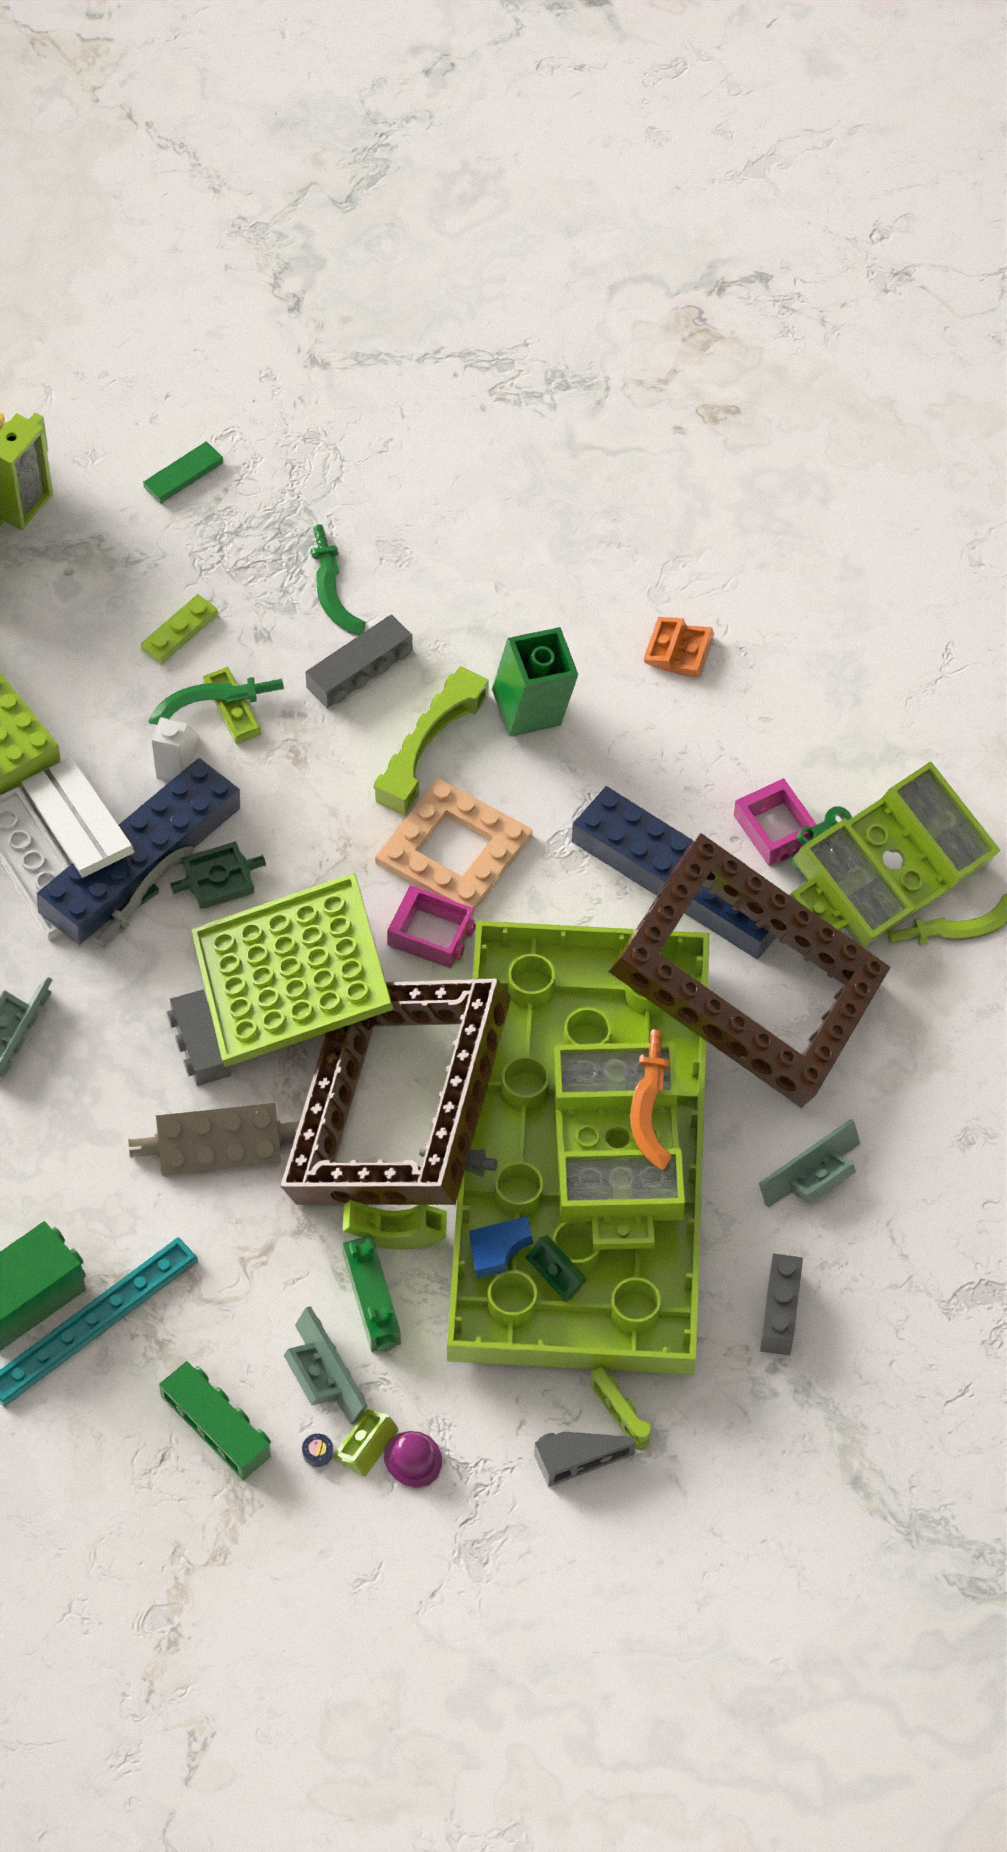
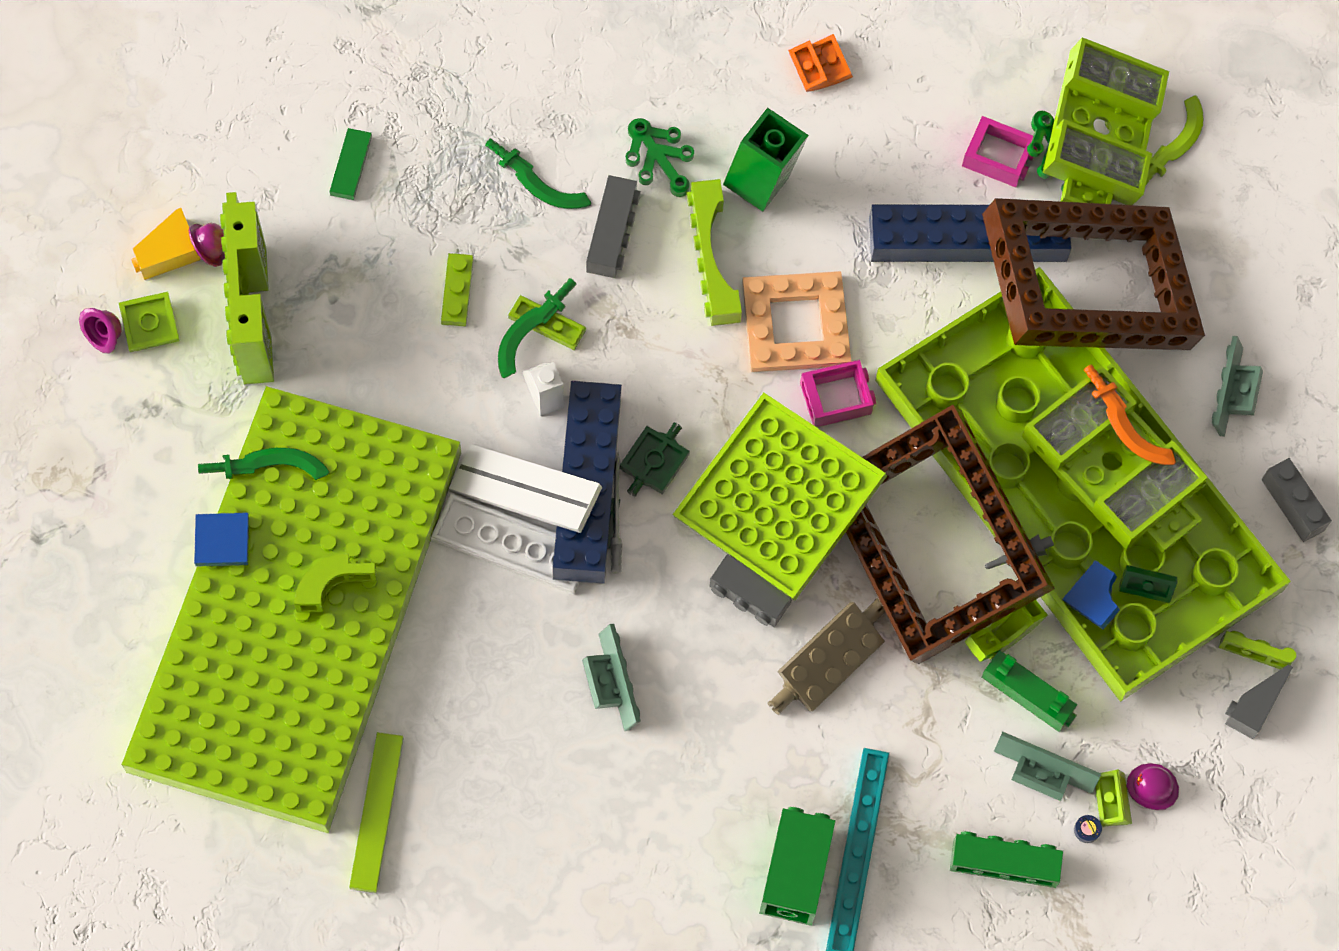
camera: 40 degrees left, 10 degrees up
(458, 627) = (658, 152): none -> green plant

